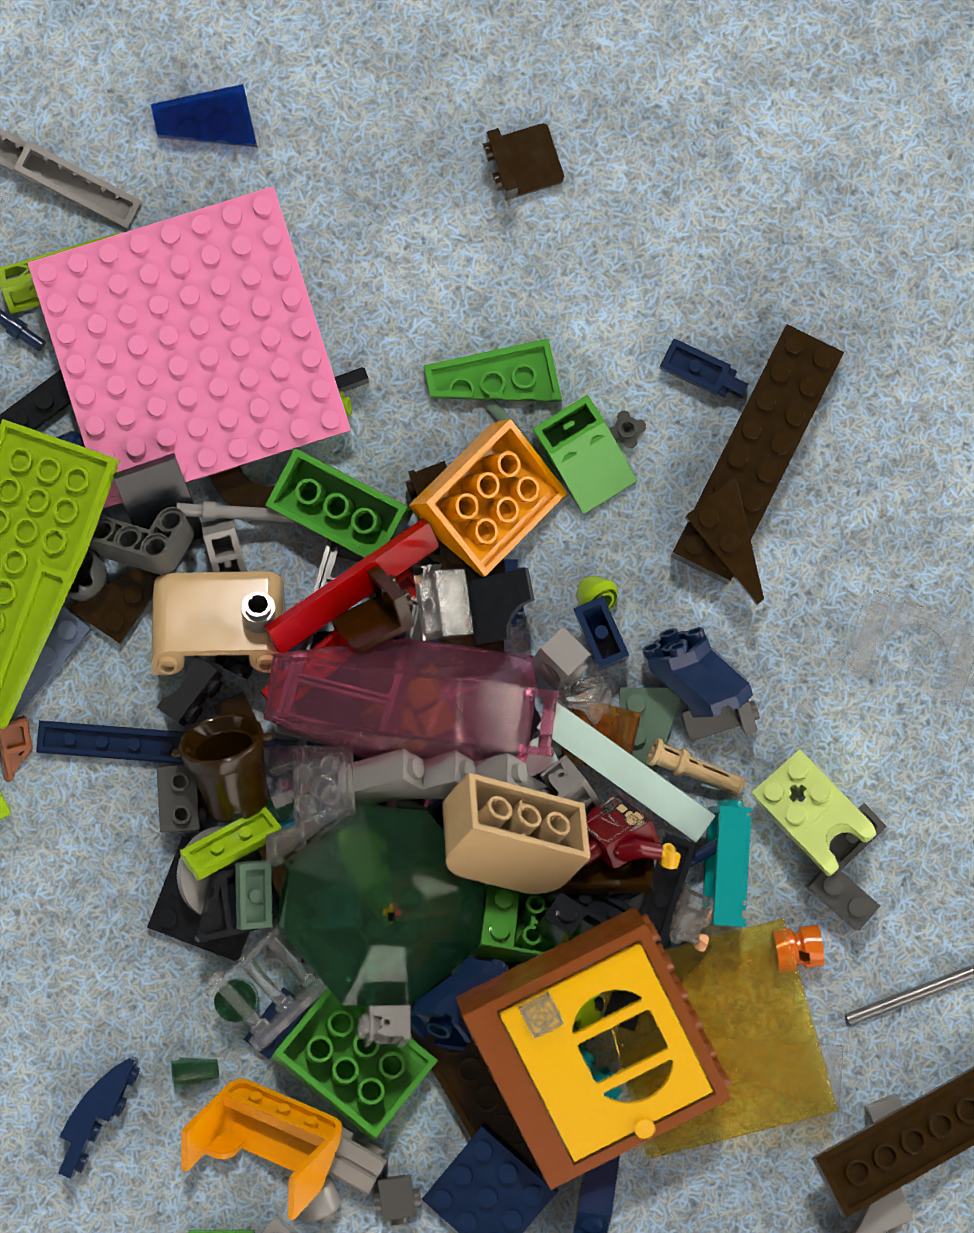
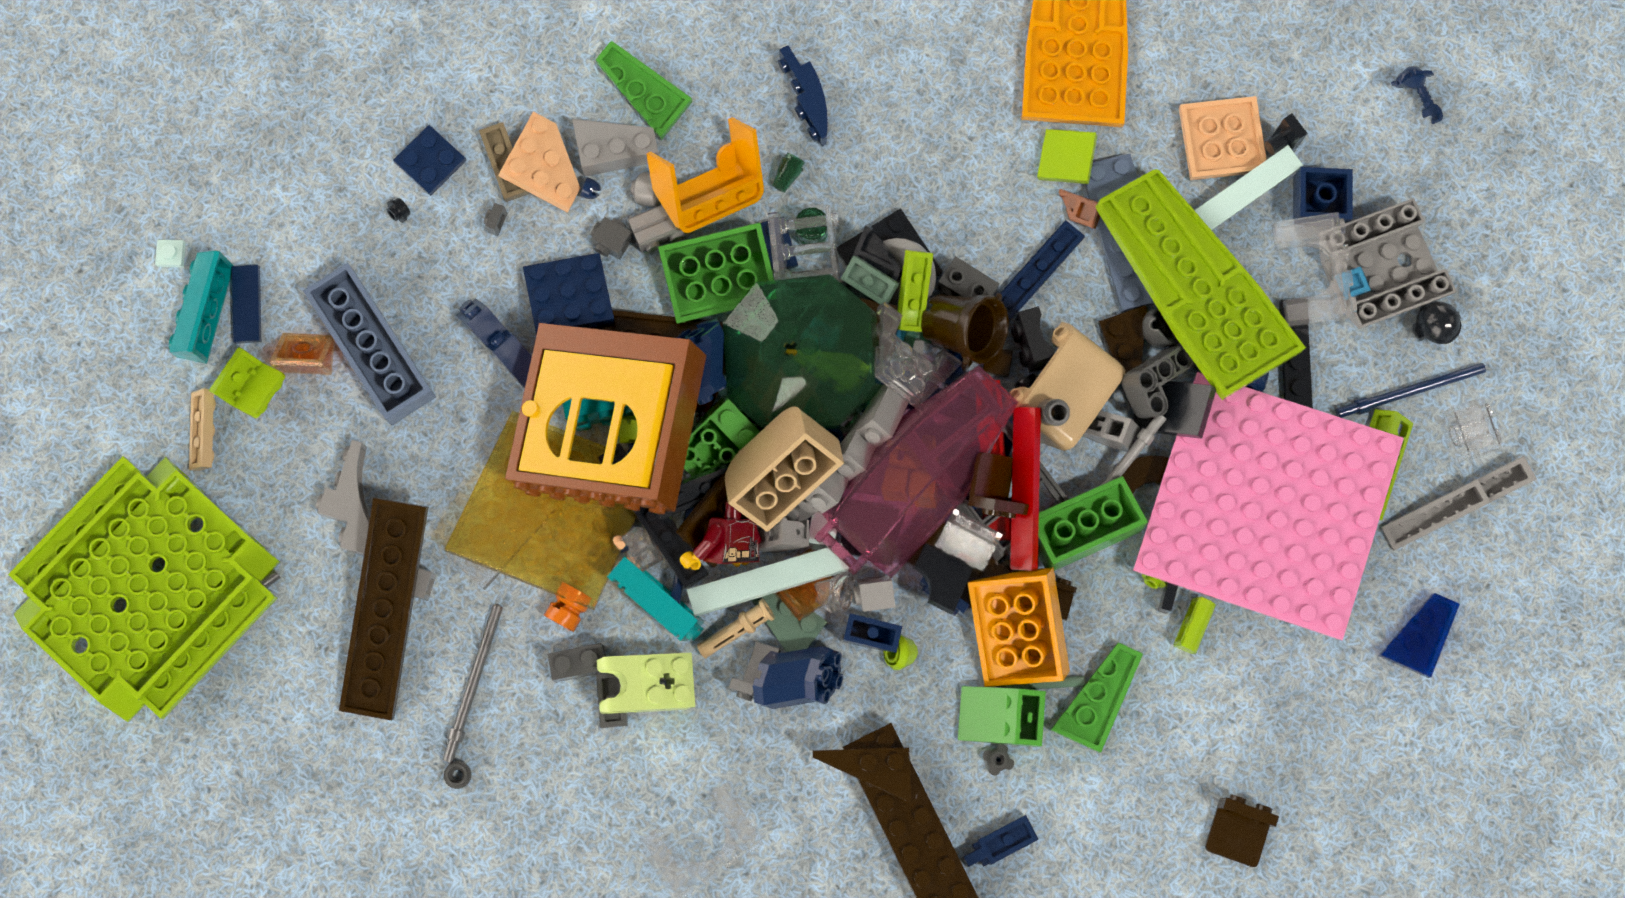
camera: 125 degrees right, 5 degrees down
(358, 337) = (1194, 625): none -> lime brick
(385, 1025) = (723, 300): light grey hinge -> none
(541, 1015) = (650, 389): tile -> none
(561, 920) = (703, 460): black brick -> none

